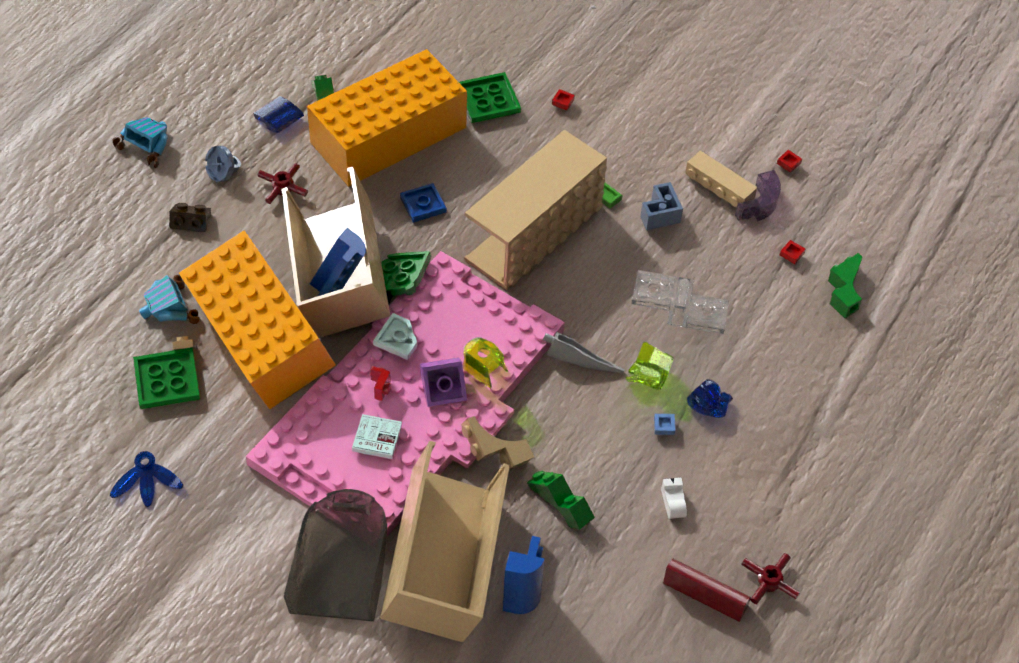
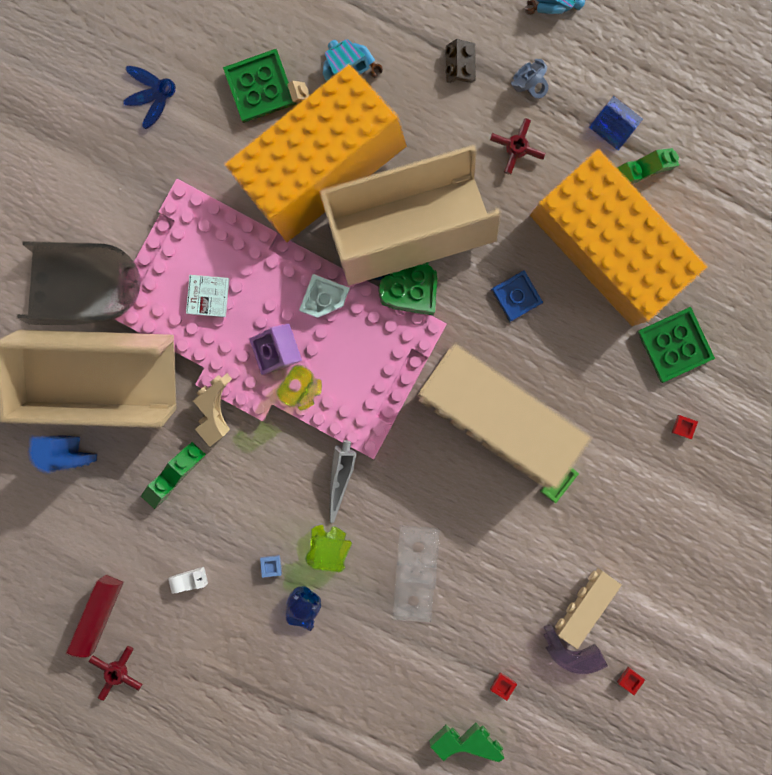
camera: 85 degrees right, 35 degrees up
(339, 263) = (379, 226): blue brick -> none
(383, 382) = (261, 292): red bracket -> none
(663, 209) = (538, 552): sand blue brick -> none

